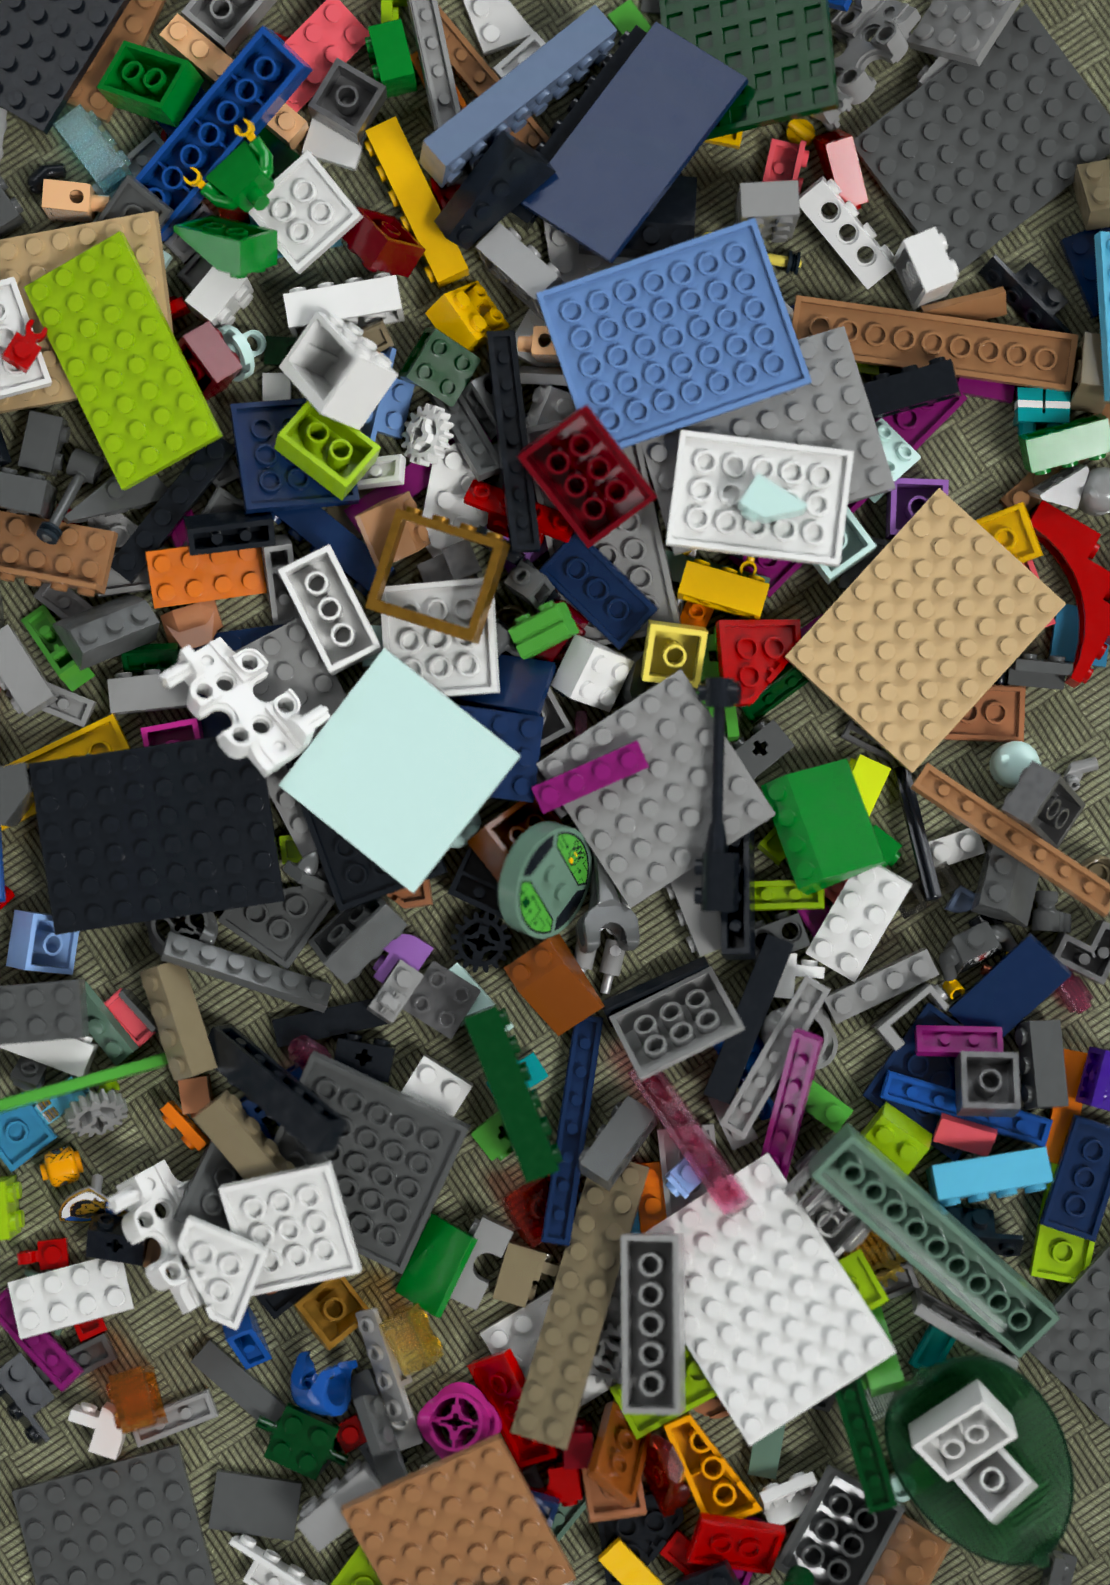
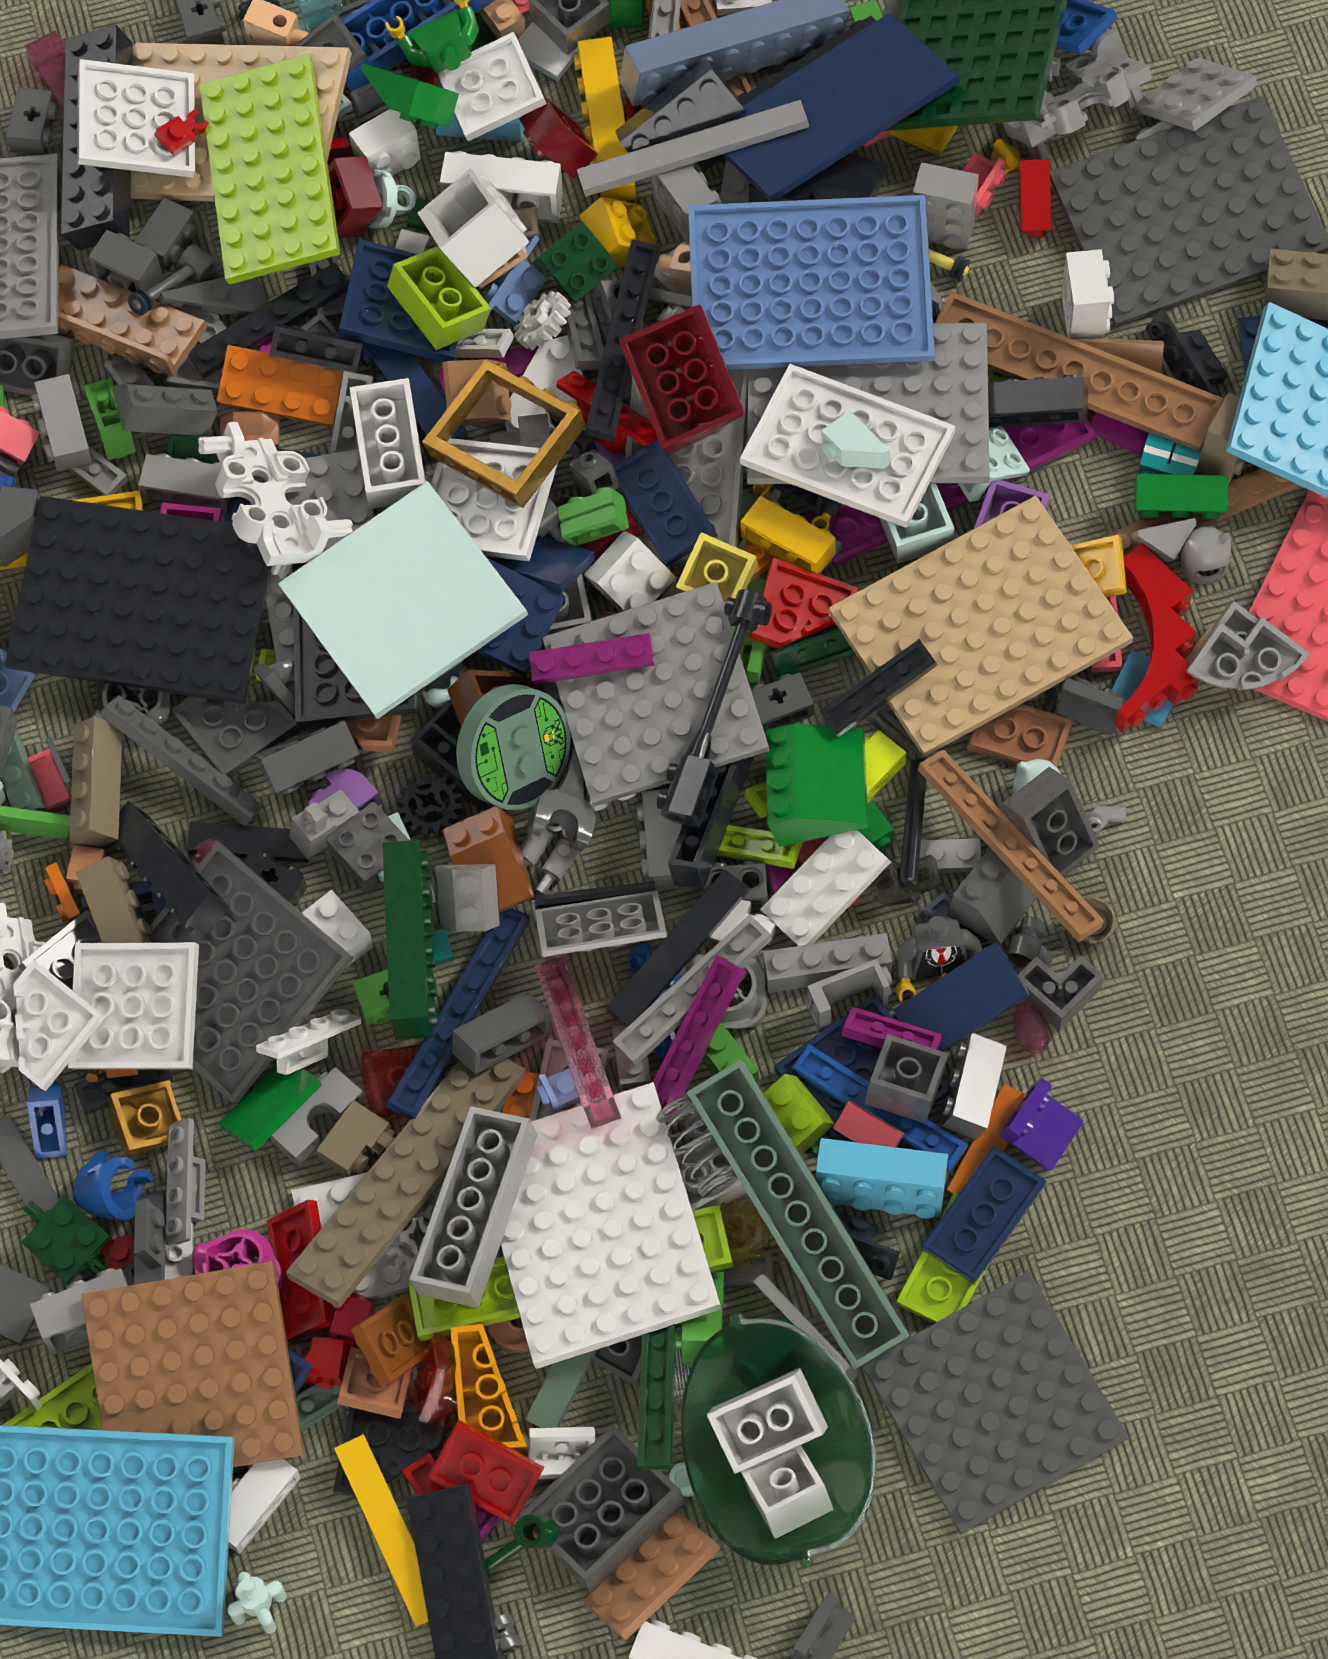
camera: 25 degrees right, 20 degrees down
(411, 1338) = (218, 1160): clear yellow slope -> none
(451, 1202) = (307, 1043): none -> white bracket
(518, 225) = (693, 148): none -> light grey tile
(547, 1026) = (467, 897): none -> light grey slope
(855, 724) = (878, 687): none -> black tile
(867, 270) = (993, 210): white brick -> none

